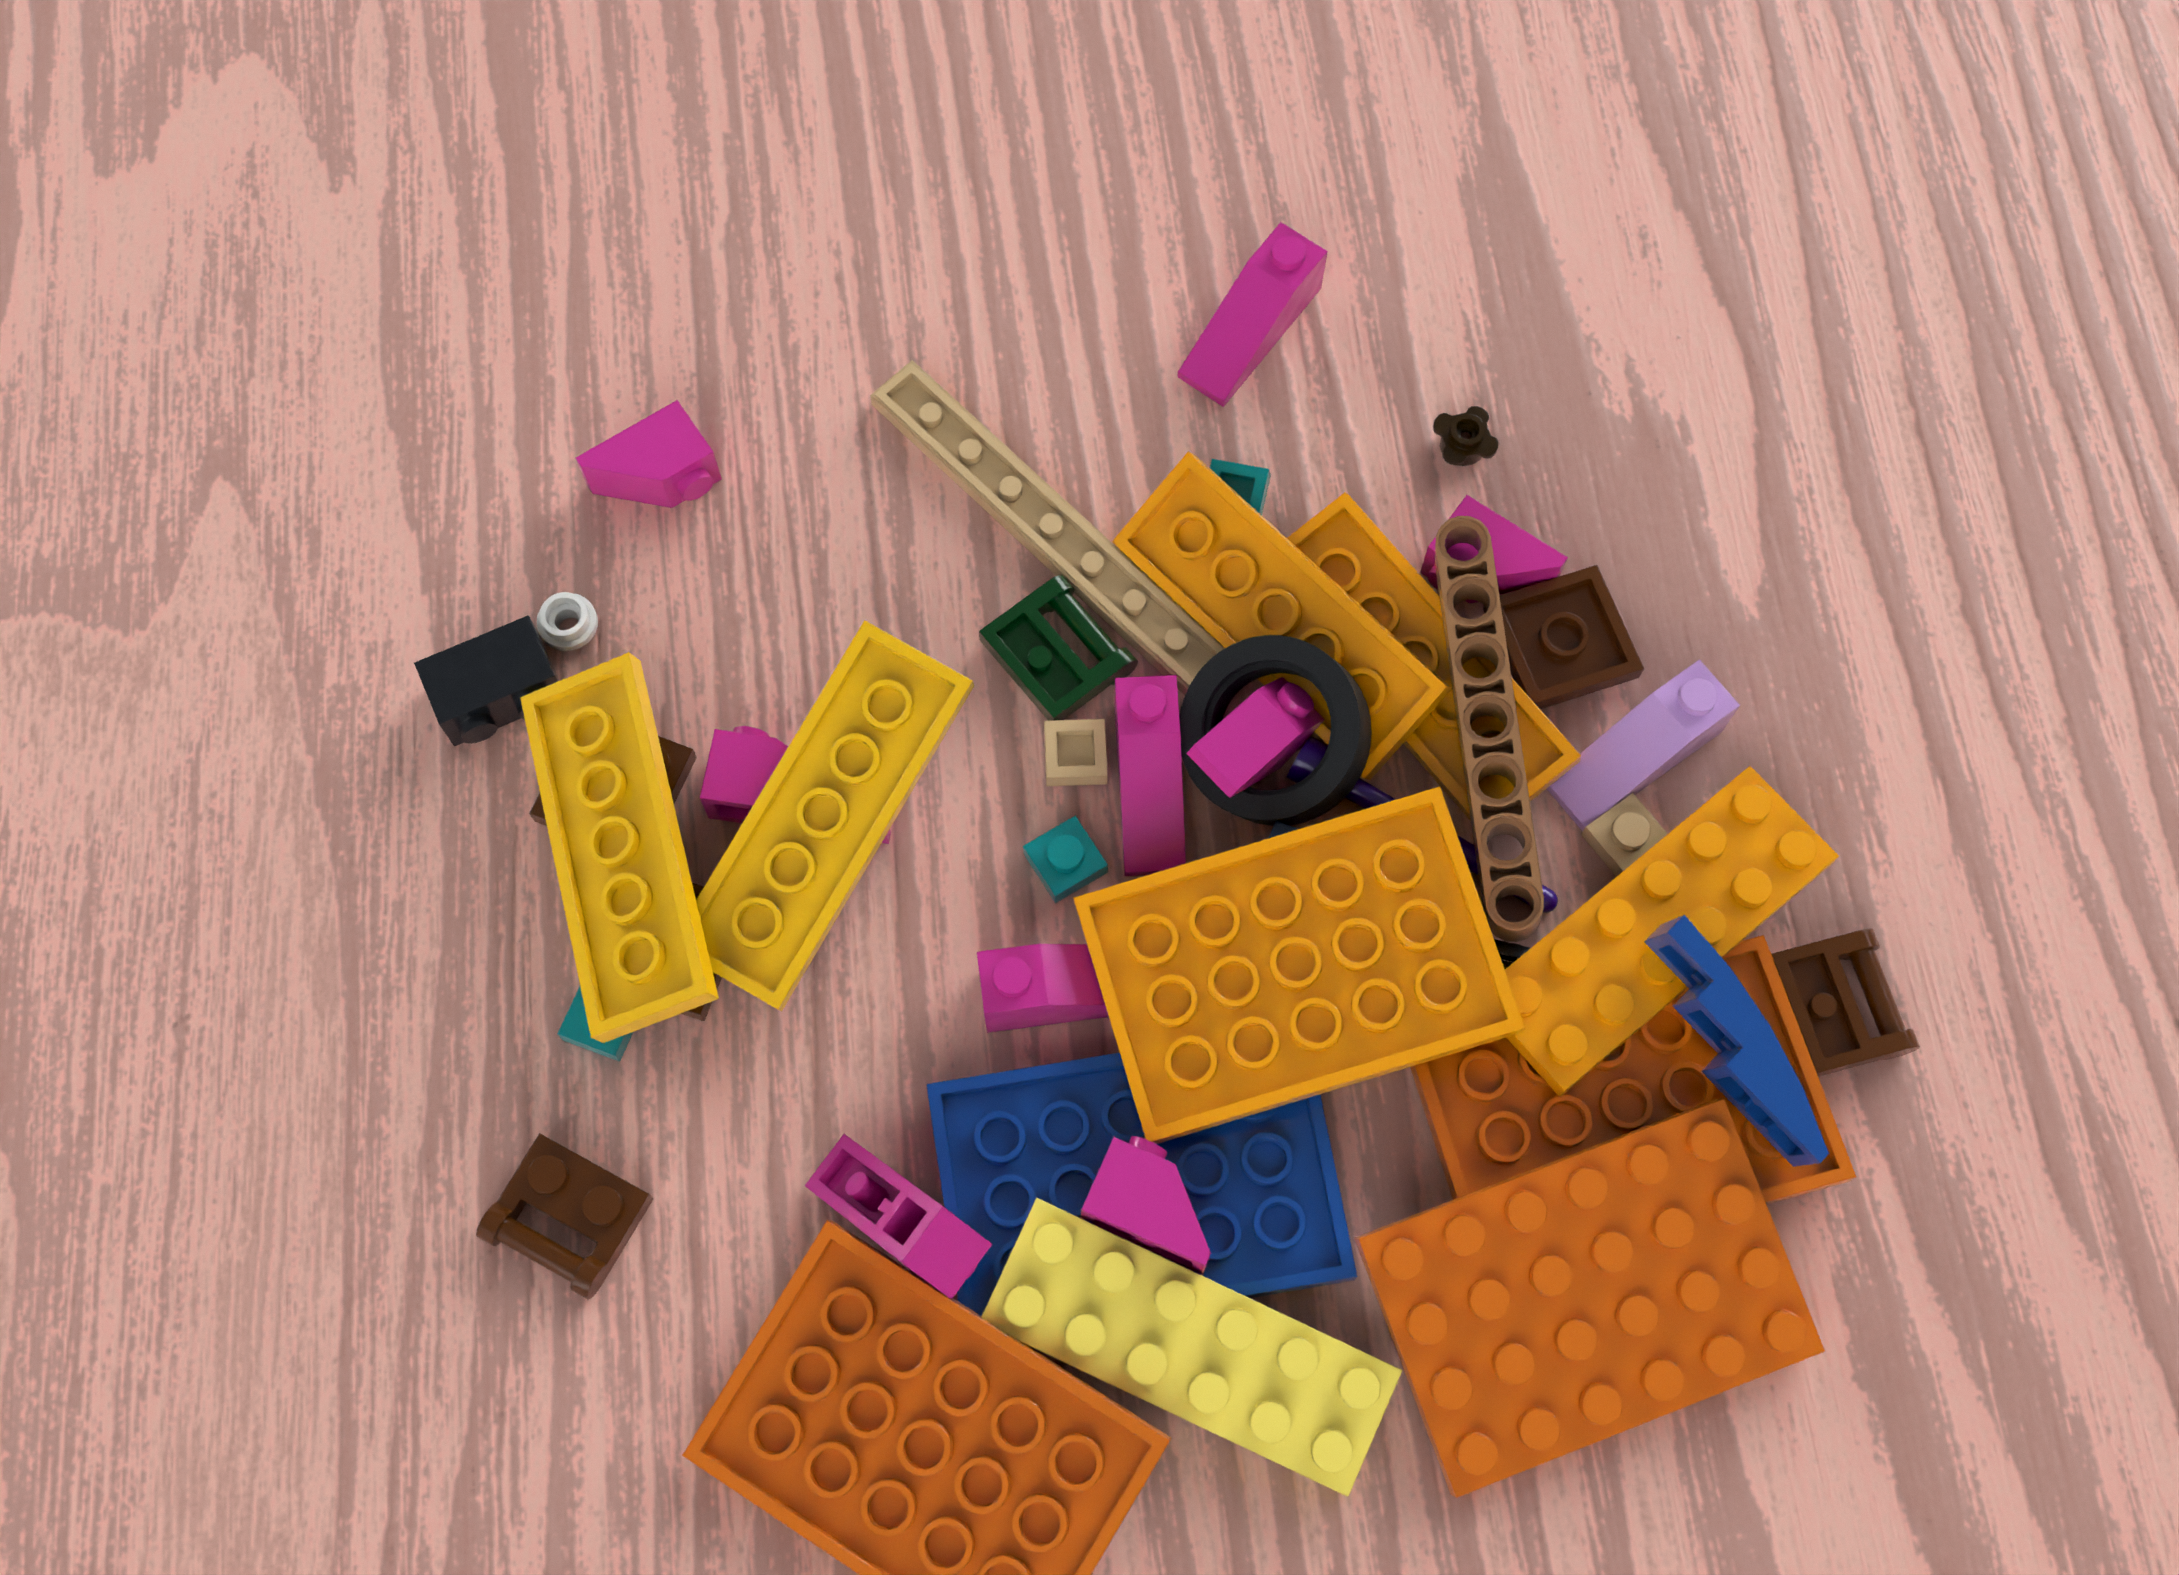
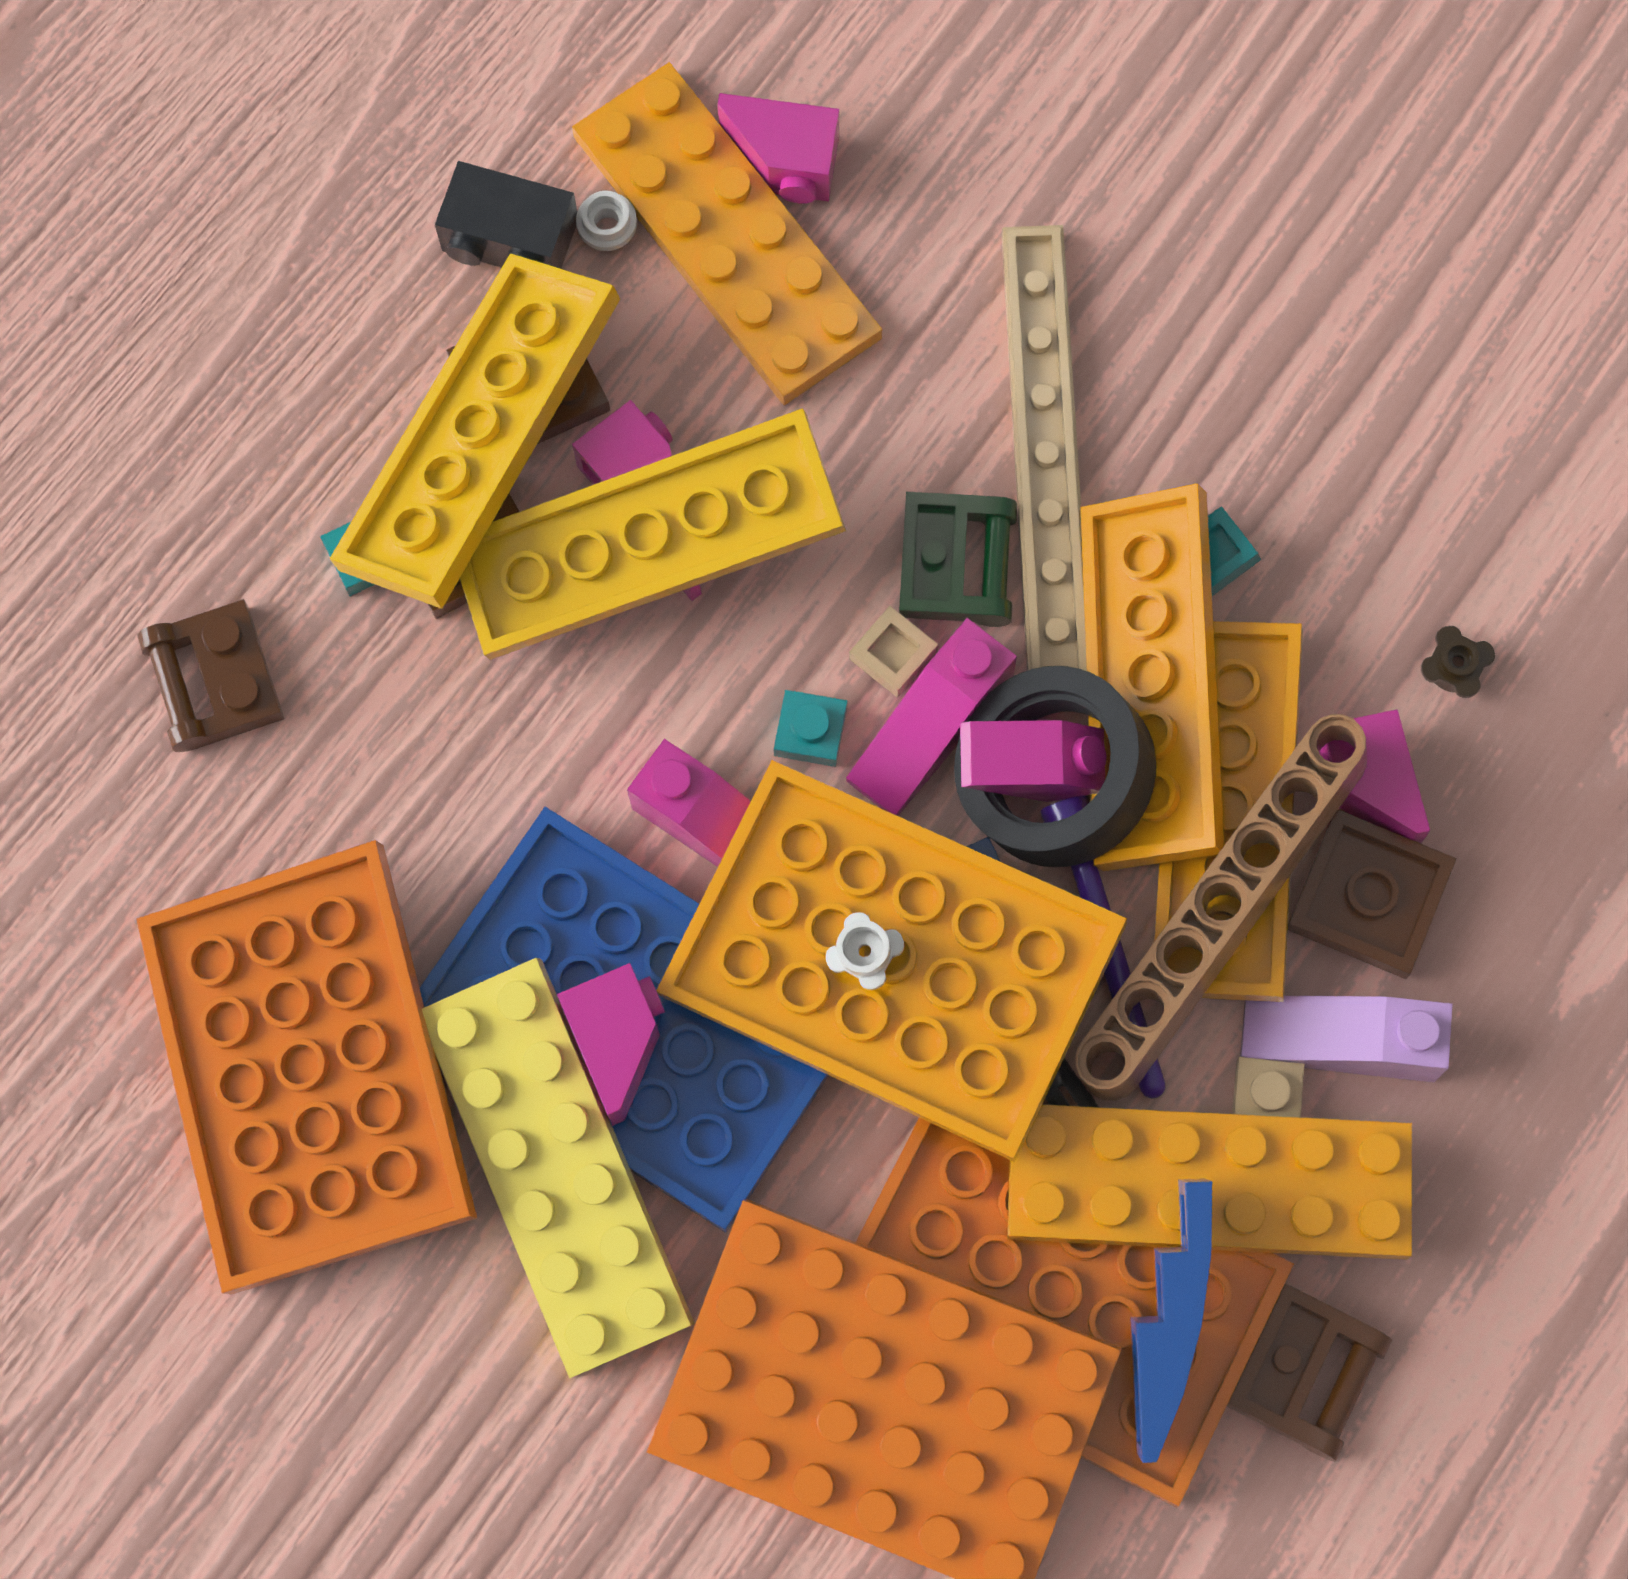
camera: 45 degrees right, 5 degrees up
(666, 558) = (727, 233): none -> light orange plate
(898, 1216) = (431, 885): dark pink slope -> none
(1255, 313) = (1379, 414): dark pink slope -> none
(1285, 955) = (859, 932): none -> white plate

